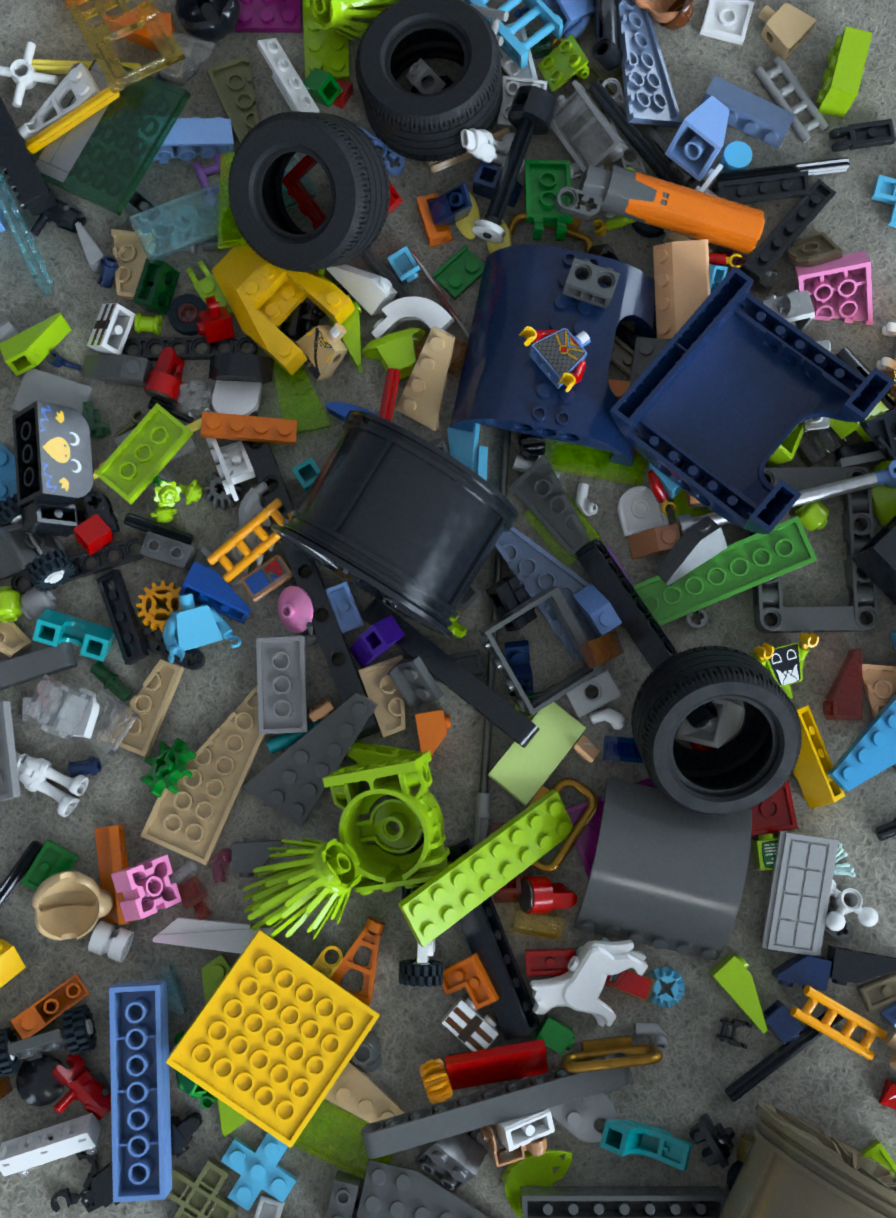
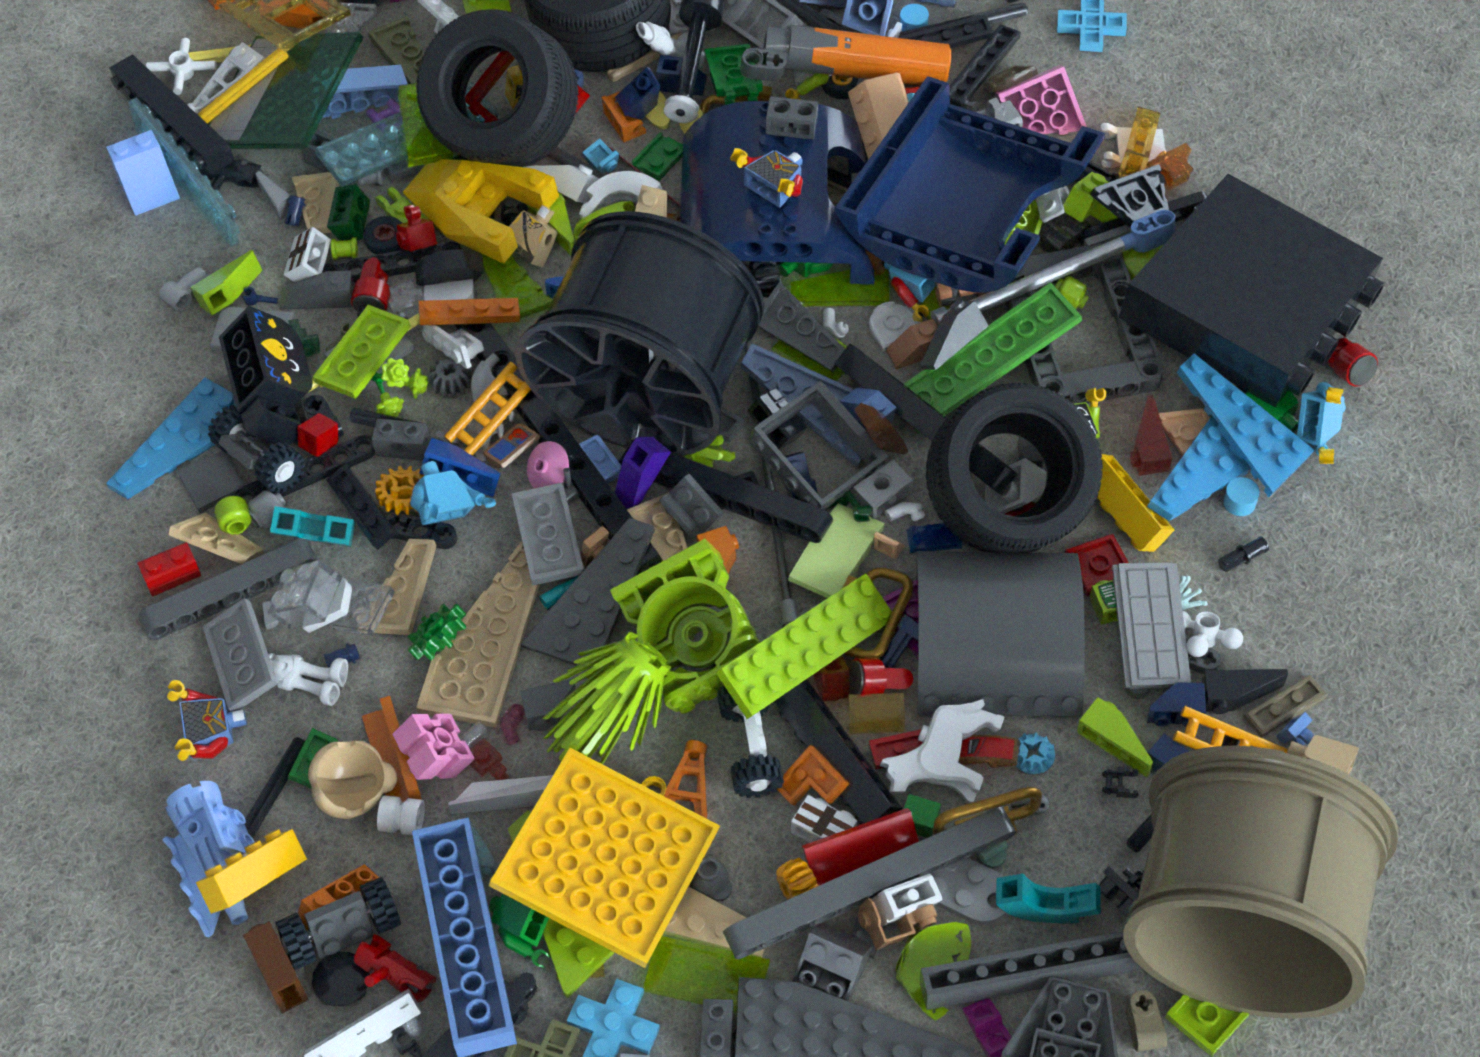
camera: 10 degrees left, 25 degrees down
(111, 681) = (356, 570): dark green axle -> none
(566, 717) = (860, 512): none -> dark green hand
(582, 854) = (908, 629): none -> dark blue piece

